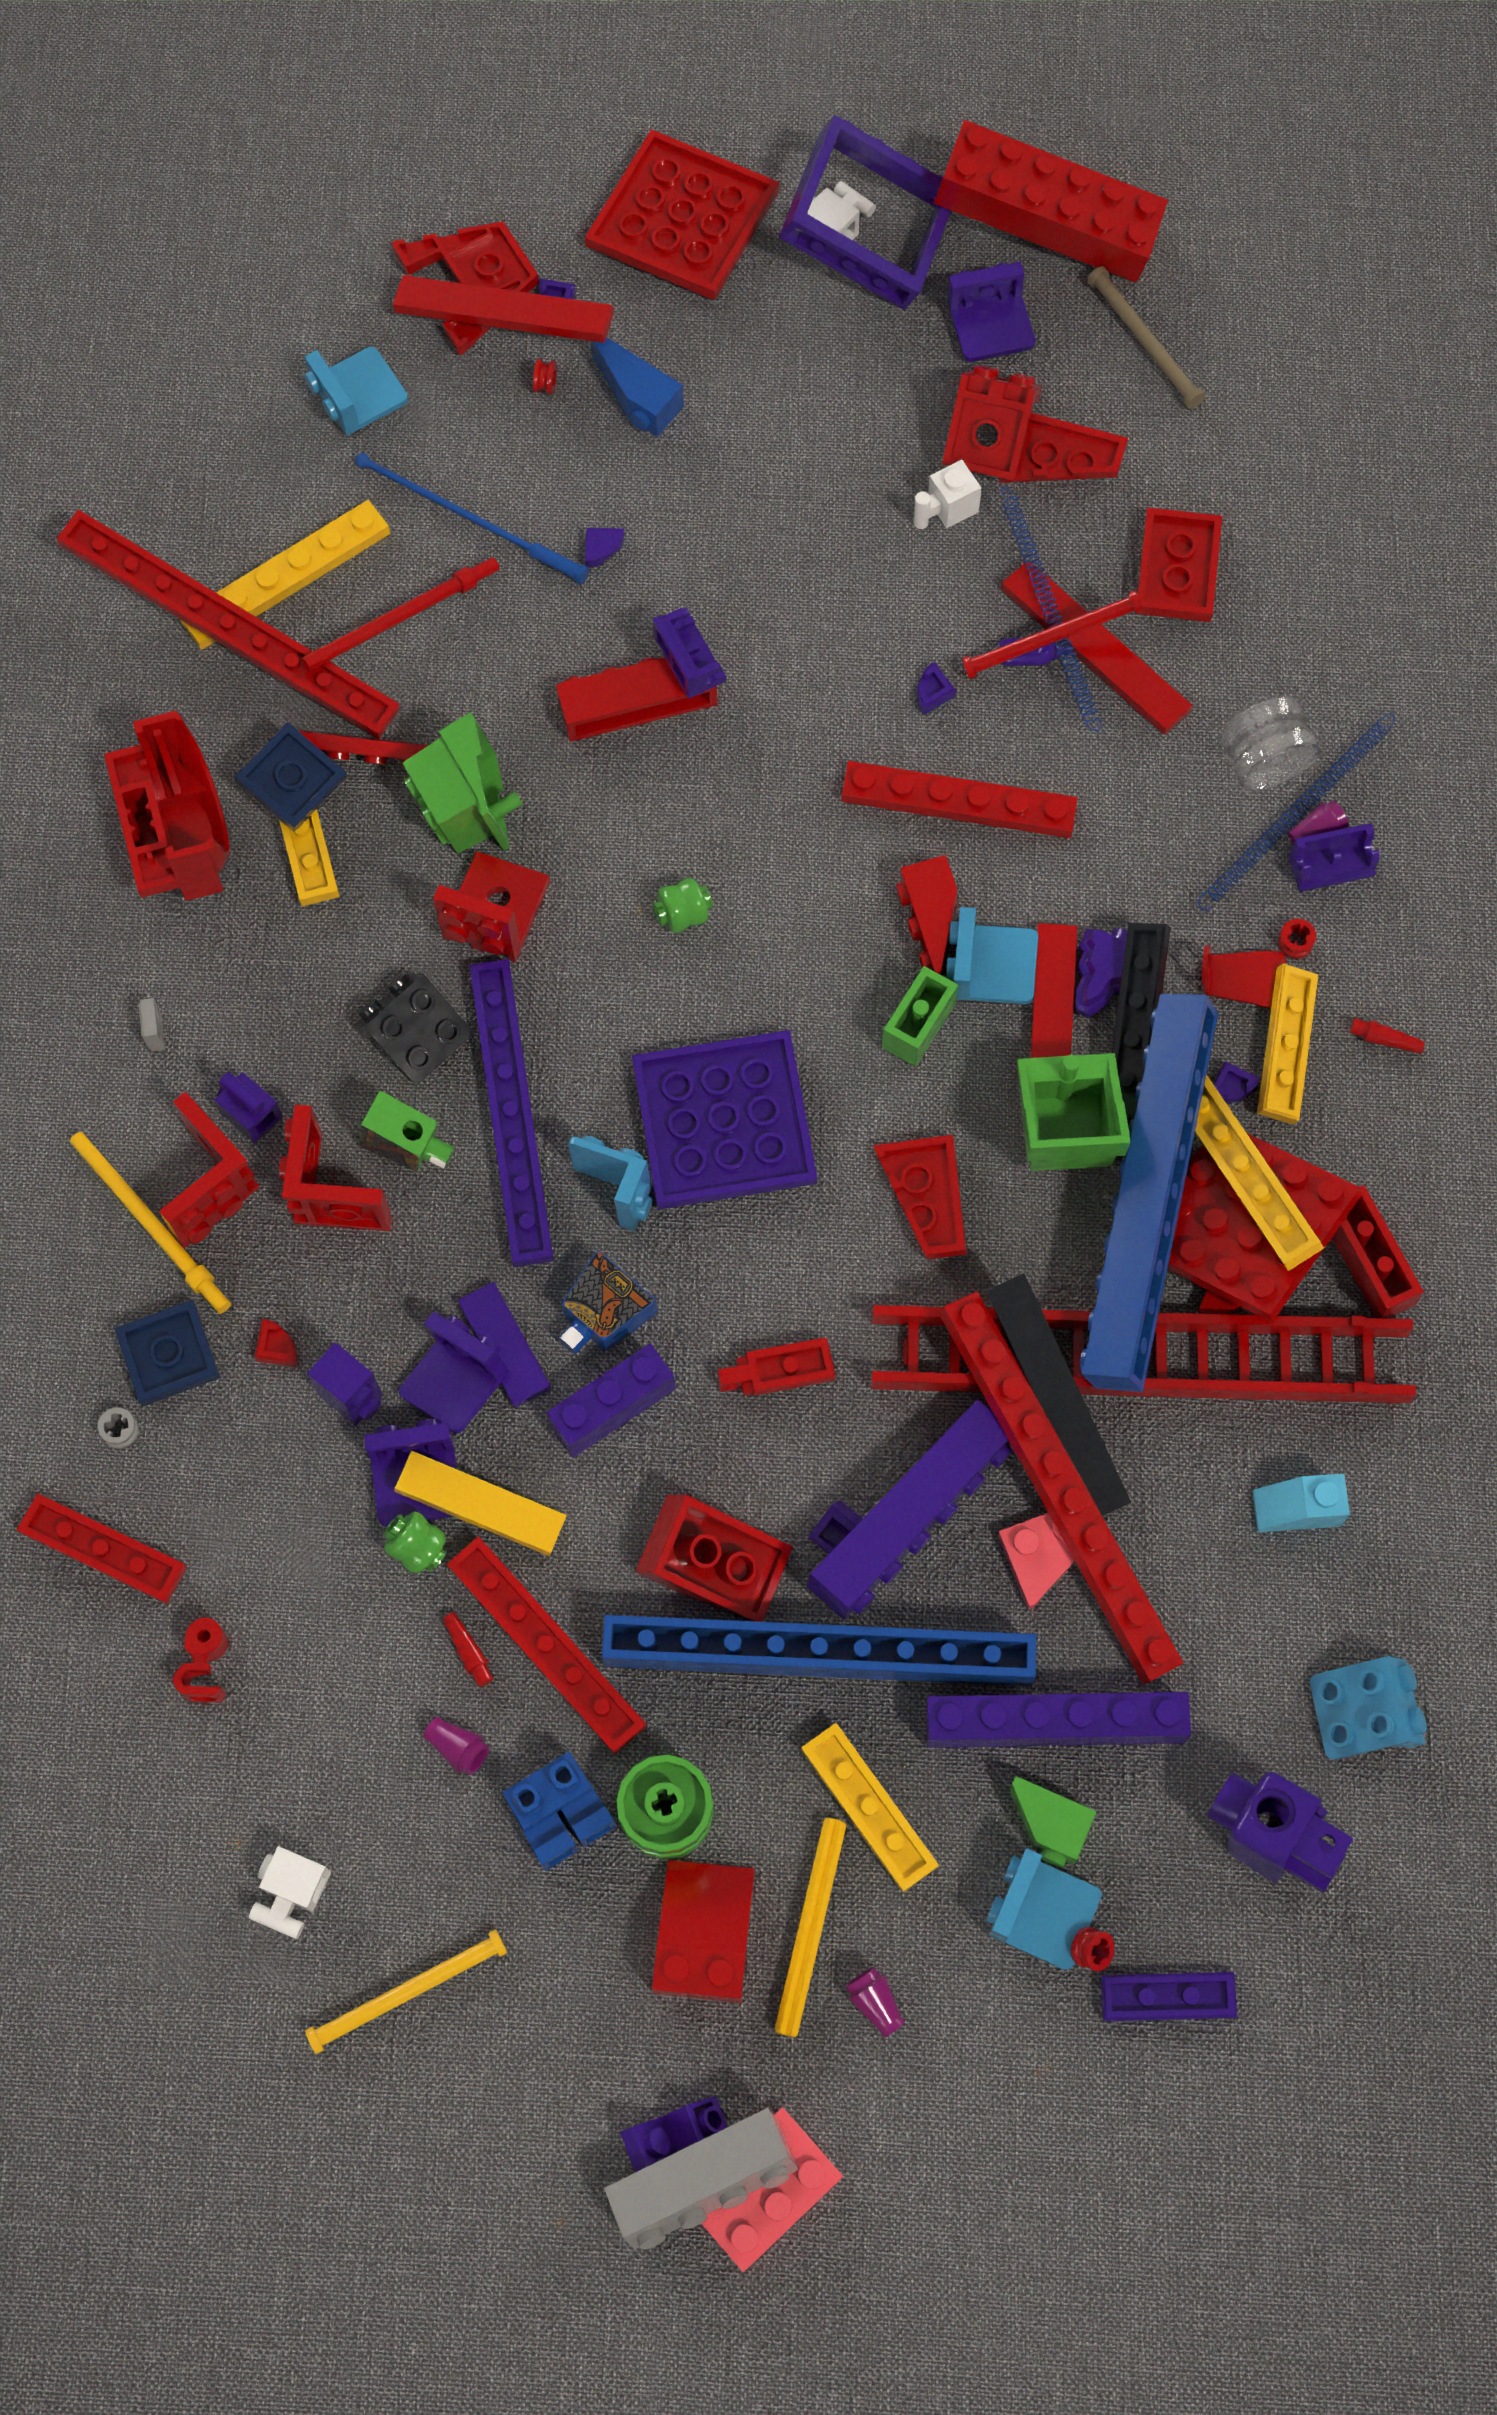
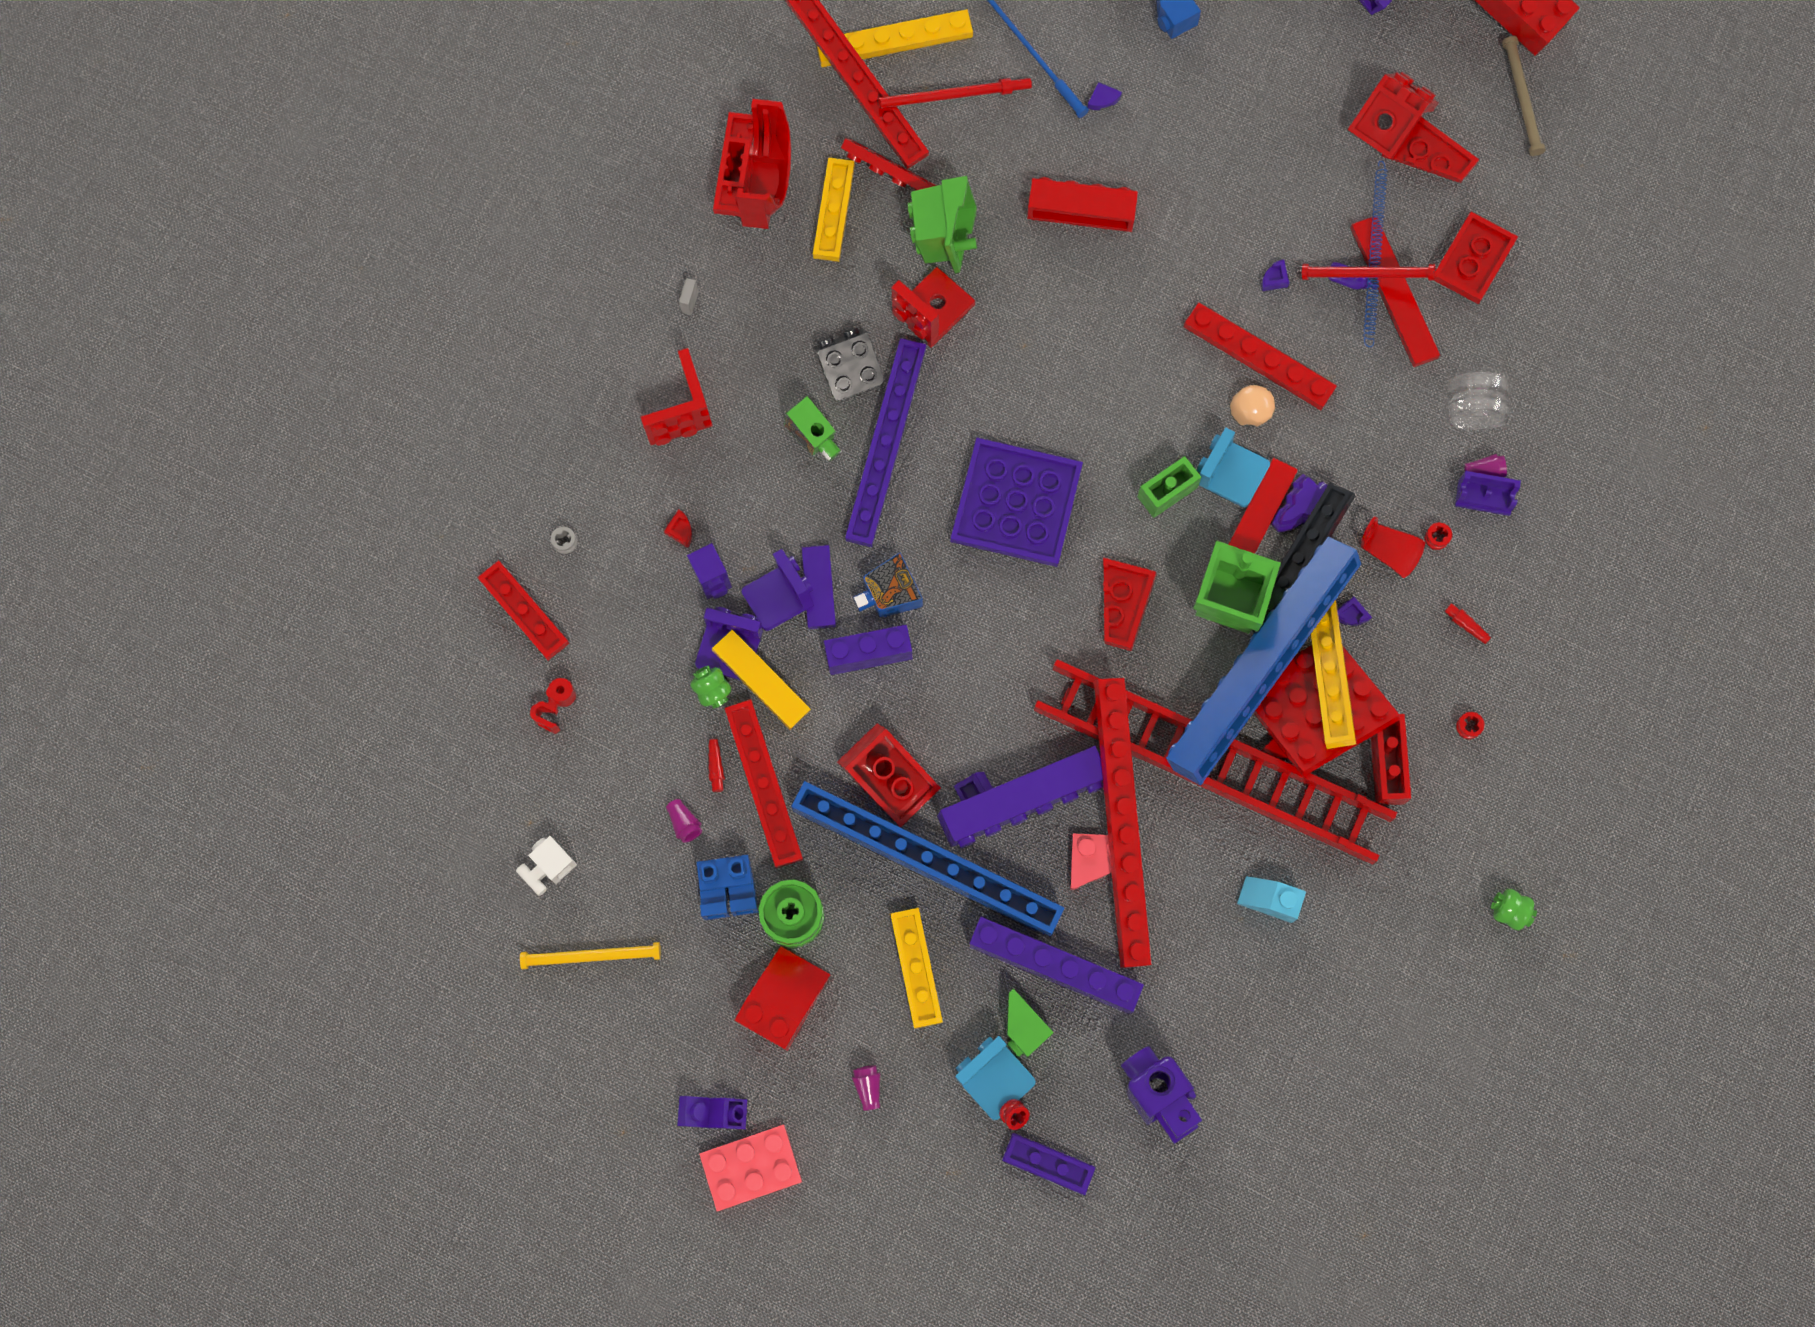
camera: 25 degrees right, 5 degrees up
(167, 1353) = (612, 506): dark blue plate -> none
(197, 1276) = (650, 466): yellow bar -> none
(247, 1106) = (725, 371): dark purple brick -> none
(290, 777) = (839, 172): dark blue plate -> none
(318, 1202) = (737, 430): red bracket -> none
(621, 1168) = (940, 522): dark azure bracket -> none
(682, 905) = (1050, 354): bright green piece -> none
(687, 652) = (1125, 190): dark purple hinge -> none
(701, 2180) = (714, 1146): light grey brick -> none
(780, 1368) = (982, 674): red hinge -> none
(810, 1927) = (848, 1024): yellow axle -> none
(933, 903) = (1211, 418): red slope -> none
(951, 496) = (1344, 153): white brick -> none
(980, 866) = (1252, 405): none -> light nougat hair
(990, 312) = (1426, 39): dark purple bracket -> none
(1057, 1390) = (1147, 762): black tile -> none
(1215, 889) = (1484, 449): blue piece -> none
(1287, 1044) = (1400, 602): yellow tile -> none
(1368, 1707) = (1255, 1043): dark azure bracket -> none
(1439, 1169) = (1461, 723): none -> red bush

